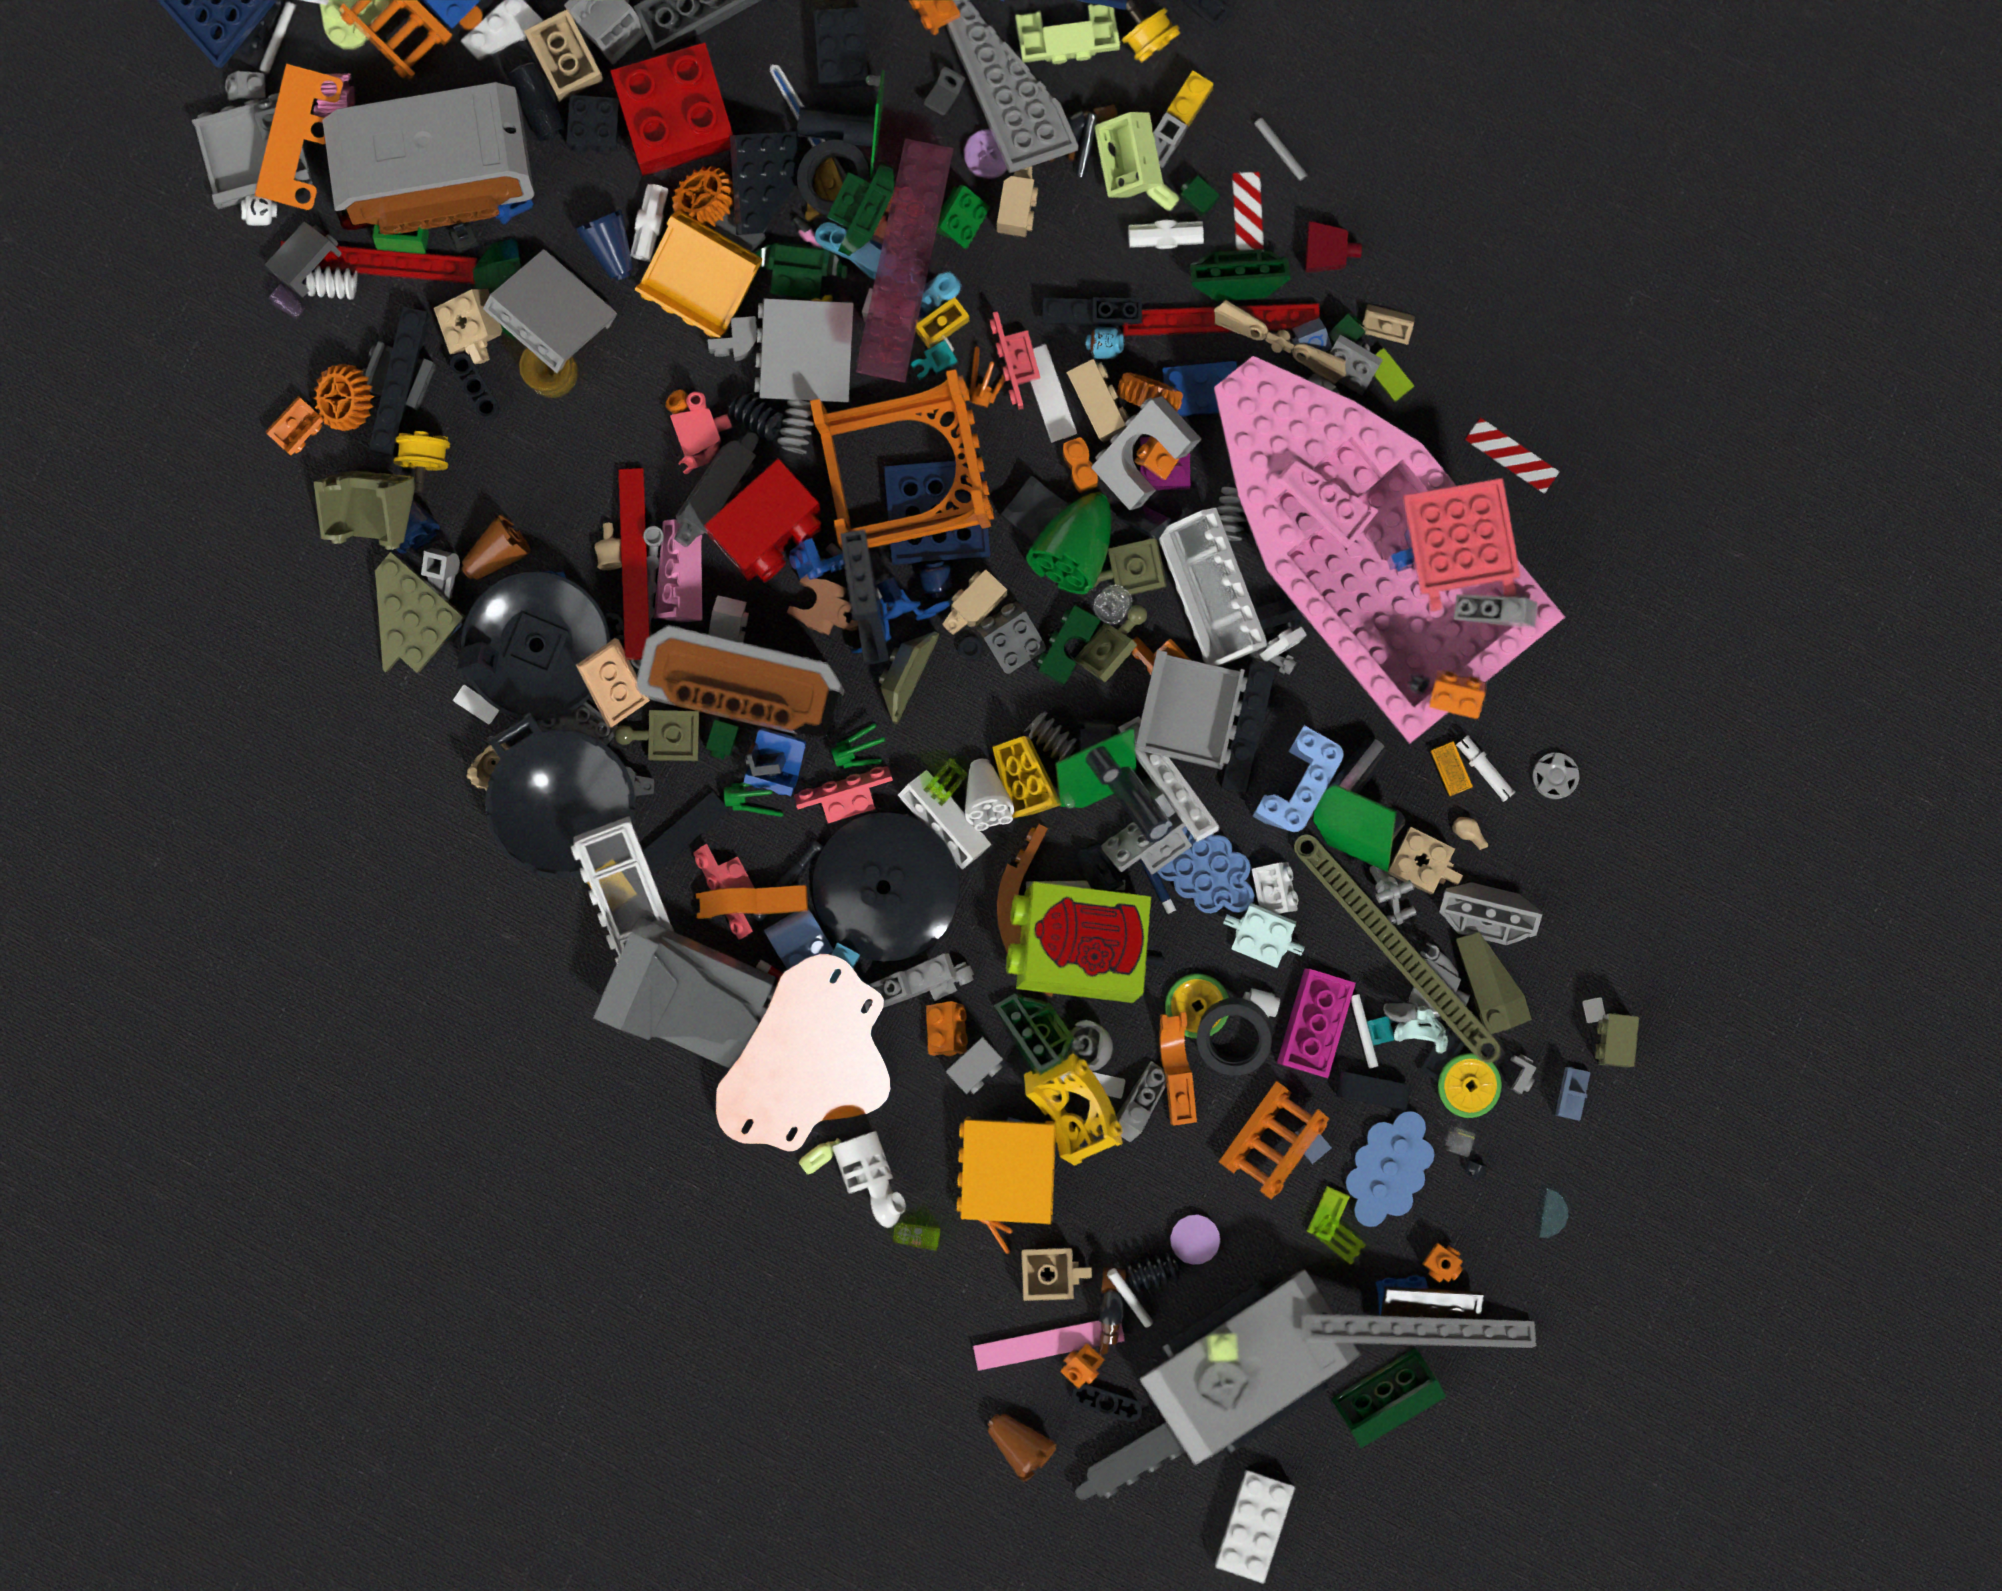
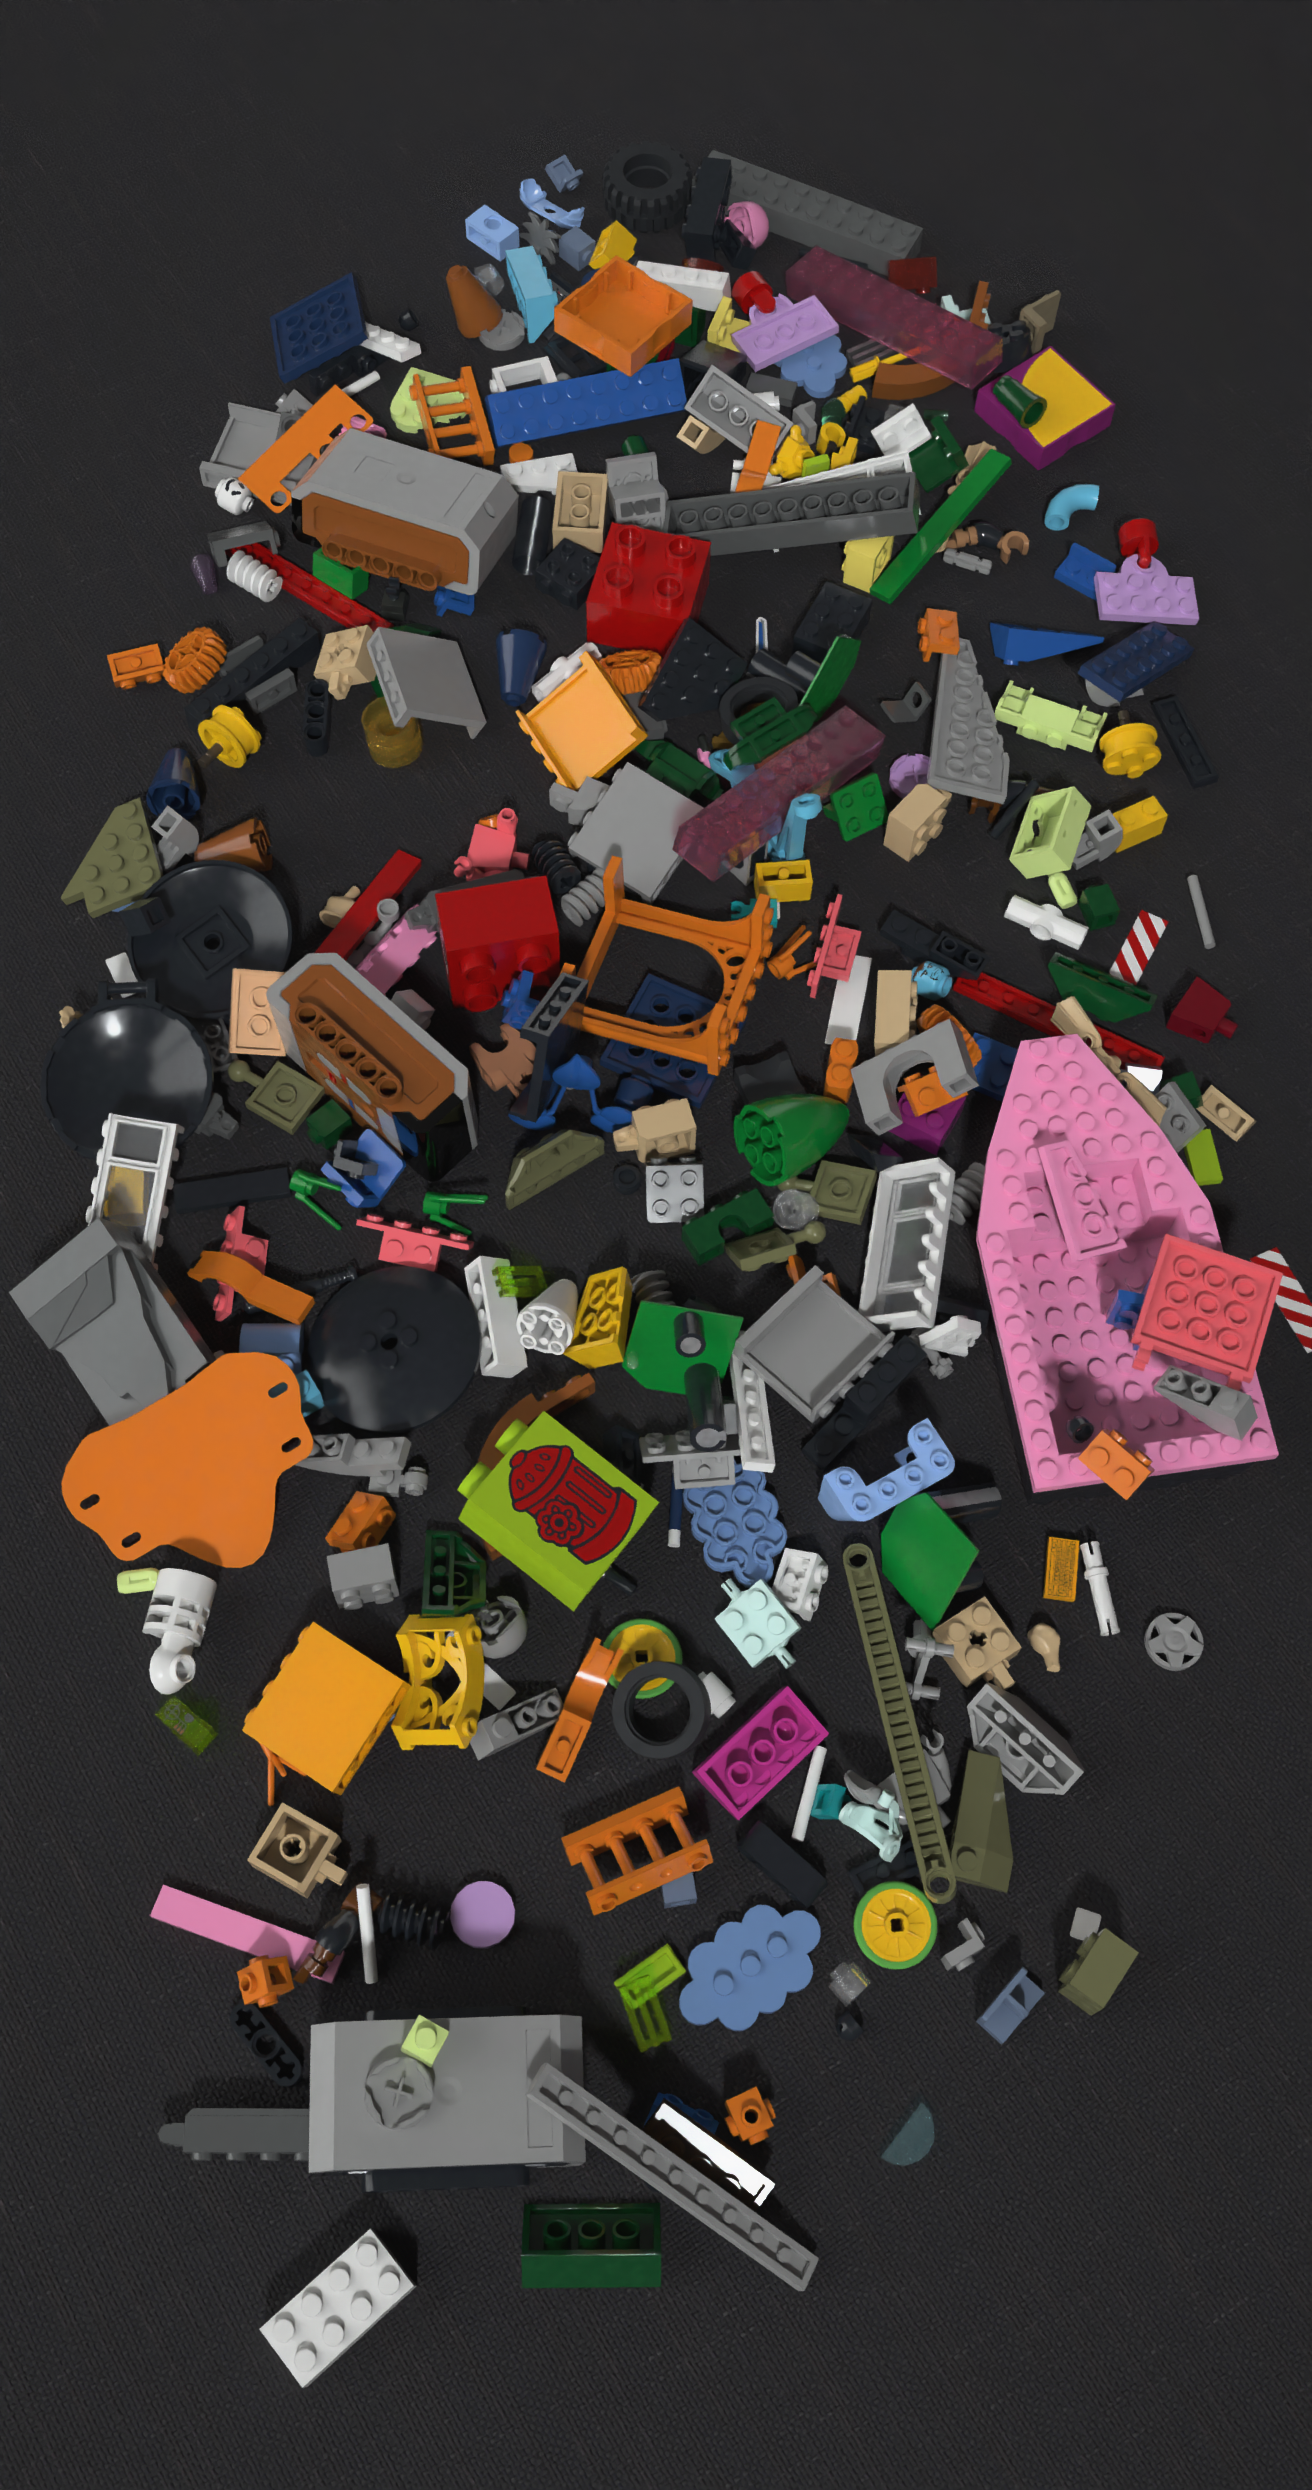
camera: 30 degrees right, 20 degrees down
(364, 506) = (142, 747): olive windscreen -> none
(1020, 1445) = (136, 2033): dark orange cone -> none

